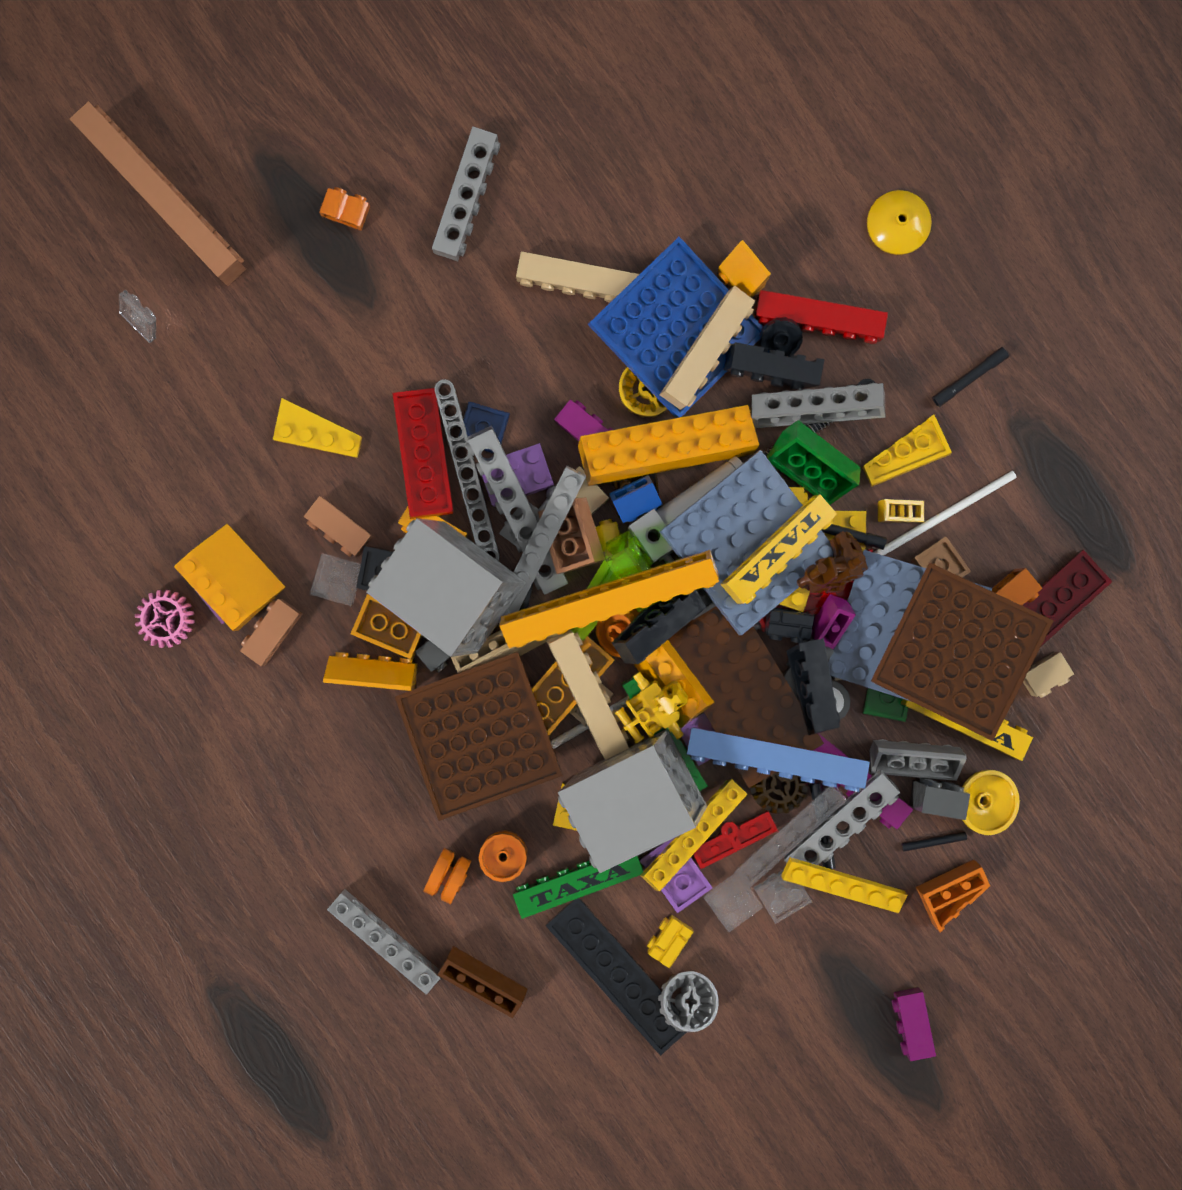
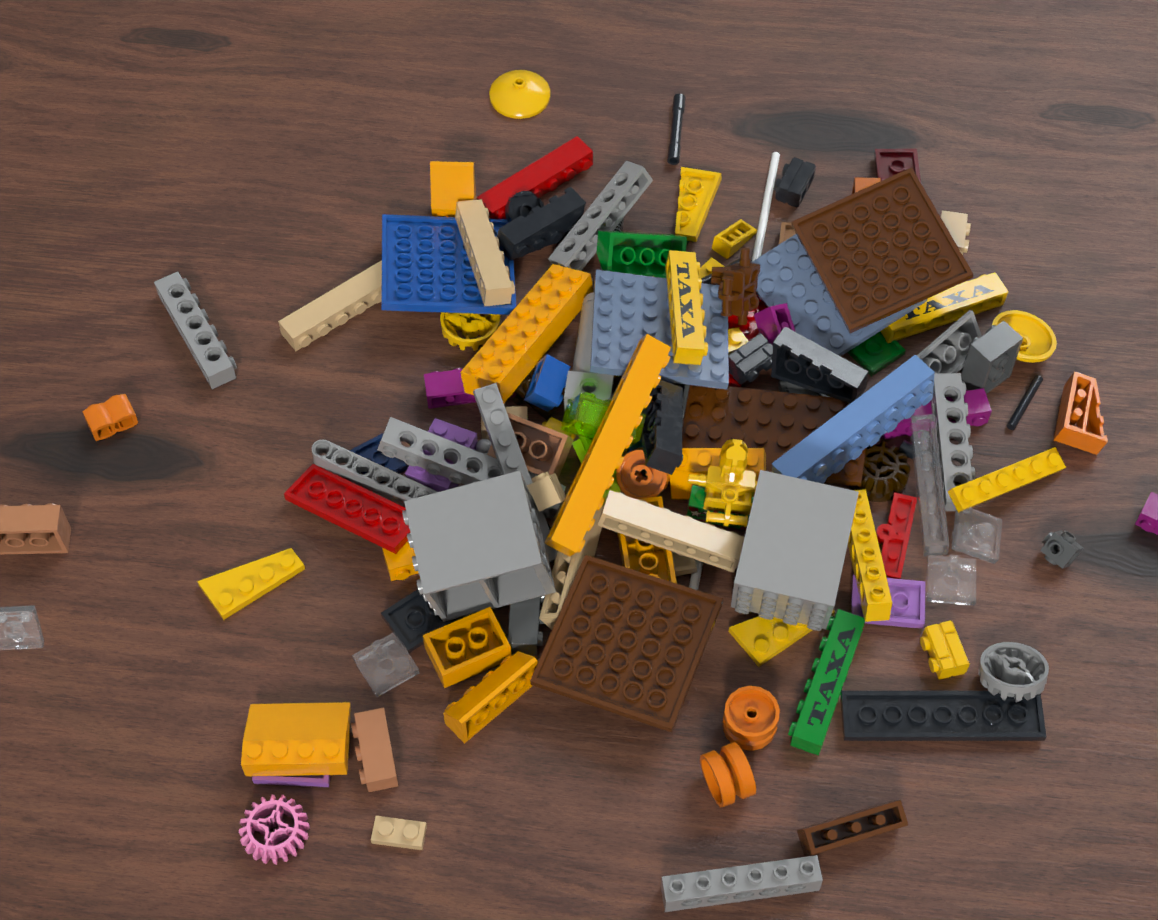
camera: 50 degrees left, 30 degrees down
(234, 696) = (398, 832): none -> tan plate
(337, 527) = (344, 623): nougat brick -> none
(538, 585) = (546, 490): none -> tan brick
(820, 961) = (1061, 548): none -> dark grey brick
(995, 514) = (795, 182): none -> black brick

